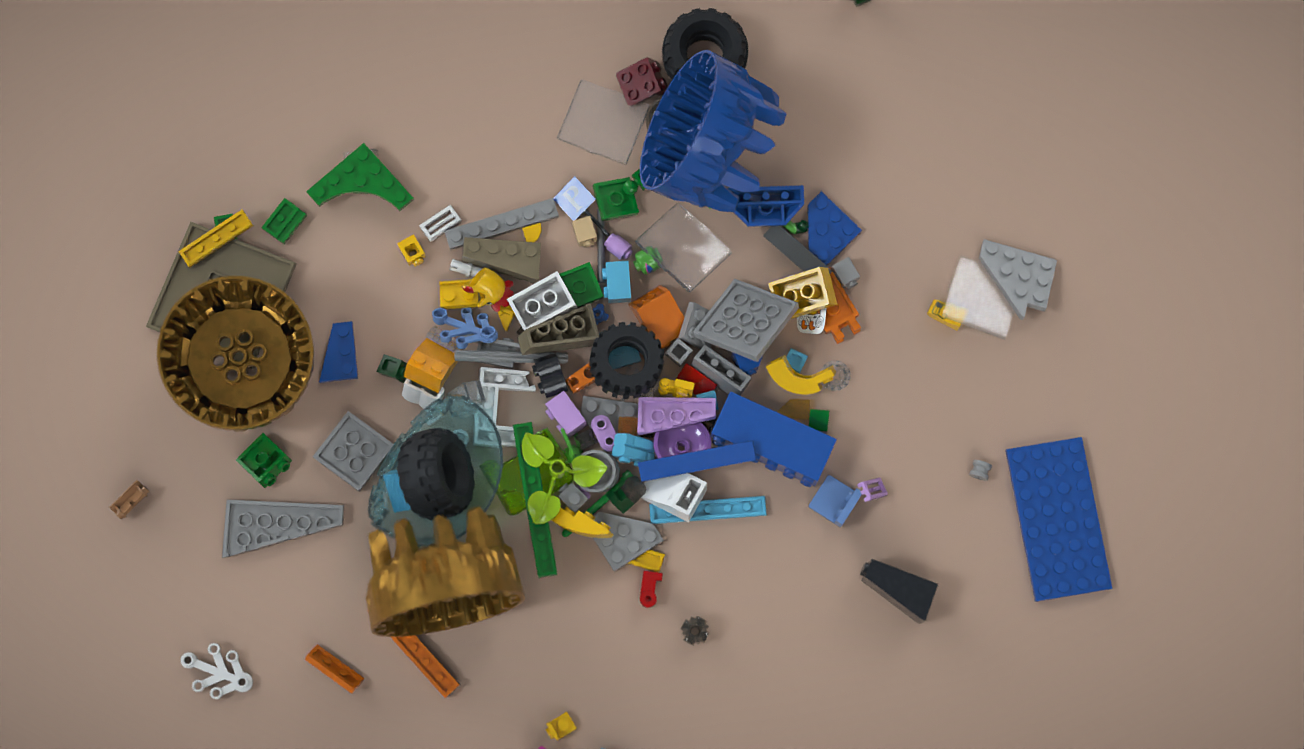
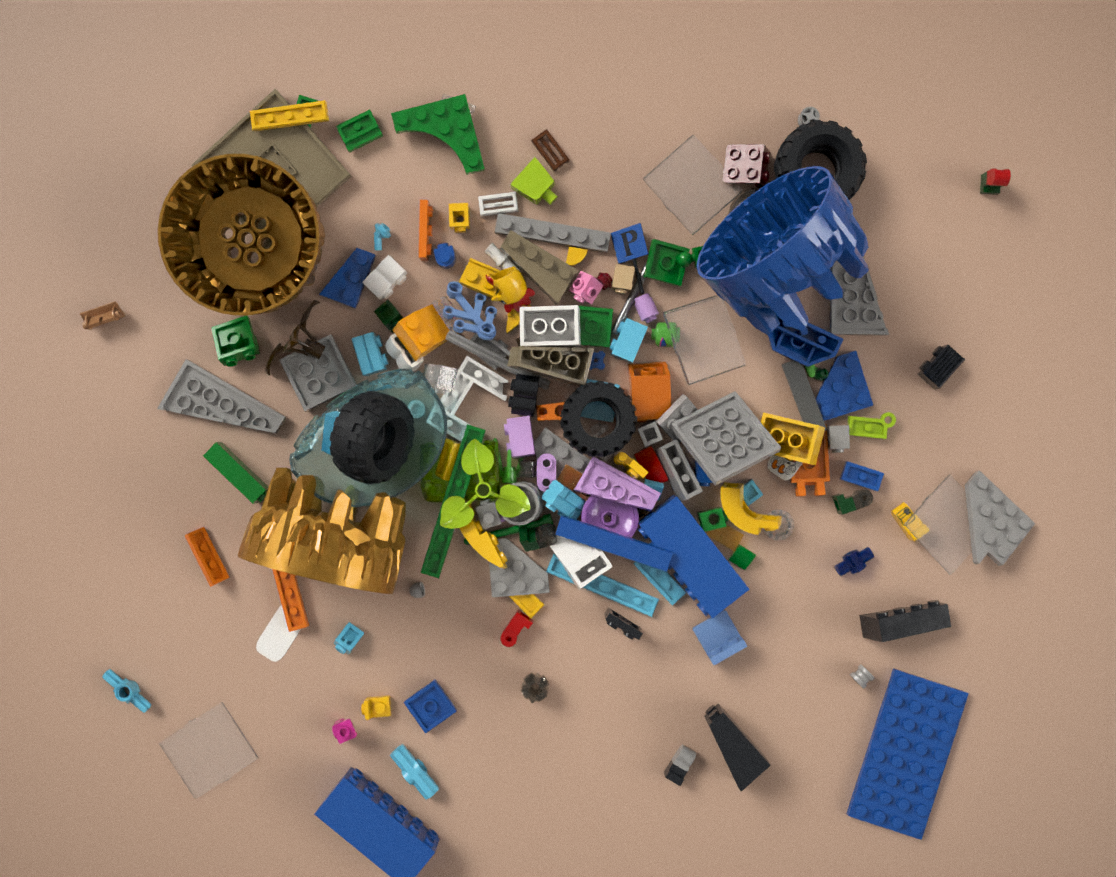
camera: 30 degrees right, 10 degrees up
(219, 673) = (108, 507): white plant -> none
(325, 578) = (236, 472): none -> green brick
(337, 428) = (311, 346): none -> dark brown plant
(348, 299) = (381, 231): none -> medium azure plate
(372, 336) = (385, 277): none -> white brick
(387, 277) = (425, 230): none -> orange plate
(391, 410) = (369, 353): none -> medium azure brick
(416, 291) = (445, 255): none -> blue plate
(435, 711) = (276, 637): none -> white sticker
(464, 189) = (535, 183): none -> lime torso
(476, 161) = (544, 155): none -> reddish brown tile
(502, 677) = (348, 639): none -> medium azure bracket
(511, 467) = (447, 459): none -> yellow tile
(542, 600) = (417, 590): none -> light grey hinge
(556, 255) = (585, 288): none -> bright pink brick
(568, 242) = (605, 279): none -> dark red plate
(608, 699) = (430, 706): none -> blue plate
(672, 12) = (811, 115): none -> light grey wheel
(734, 531) = (629, 628): none -> black plate
(756, 477) = (662, 582): none -> medium azure tile
(780, 392) = (704, 519): none -> green brick
(798, 151) = (858, 309): none -> light grey wing
(862, 633) = (680, 765): none -> leg
(867, 491) = (752, 645): lavender tile -> none
(868, 250) = (870, 426): none -> lime hinge
(885, 296) = (861, 476): none -> blue plate
(889, 322) = (858, 500): none -> leg
(901, 168) = (940, 366): none -> black brick
(918, 373) = (854, 561): none -> clear blue axle
(990, 401) = (905, 621): none -> black wedge

